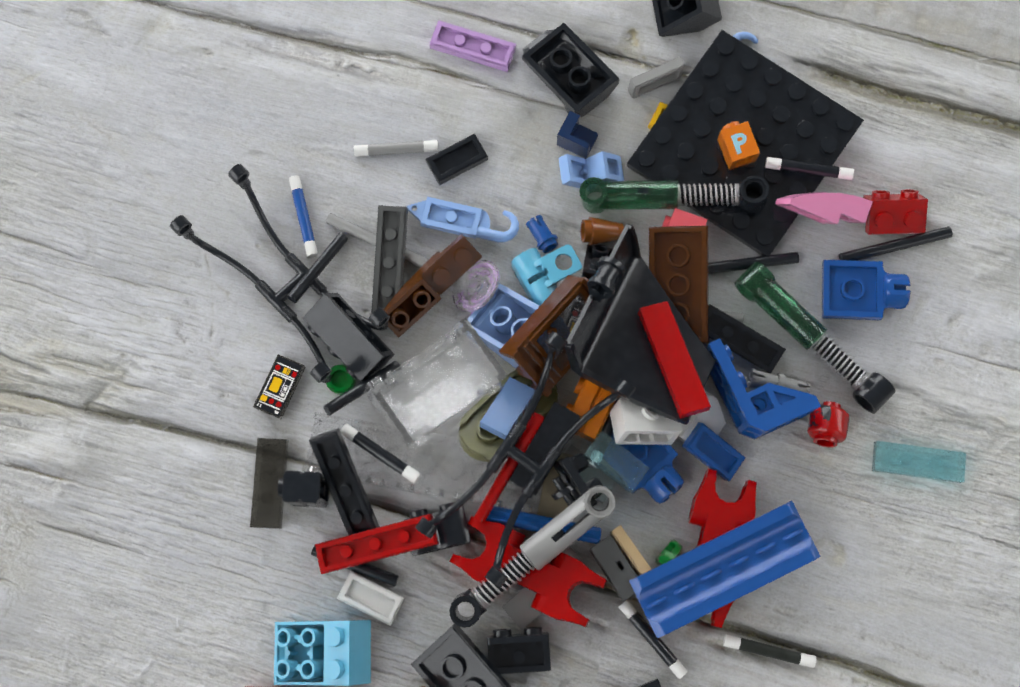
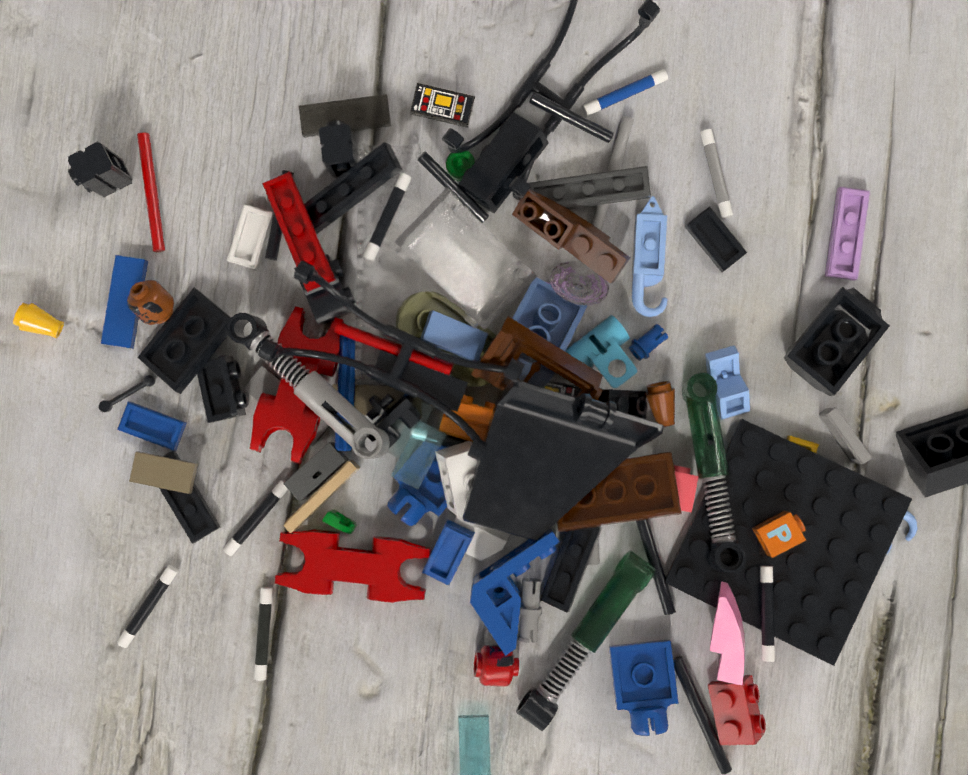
camera: 80 degrees right, 10 degrees up
(322, 653) = (190, 201): medium azure slope -> none
(575, 136) = (763, 360): dark blue panel -> none
(674, 359) = (529, 497): red tile -> none
(724, 569) = (329, 579): blue plate -> none

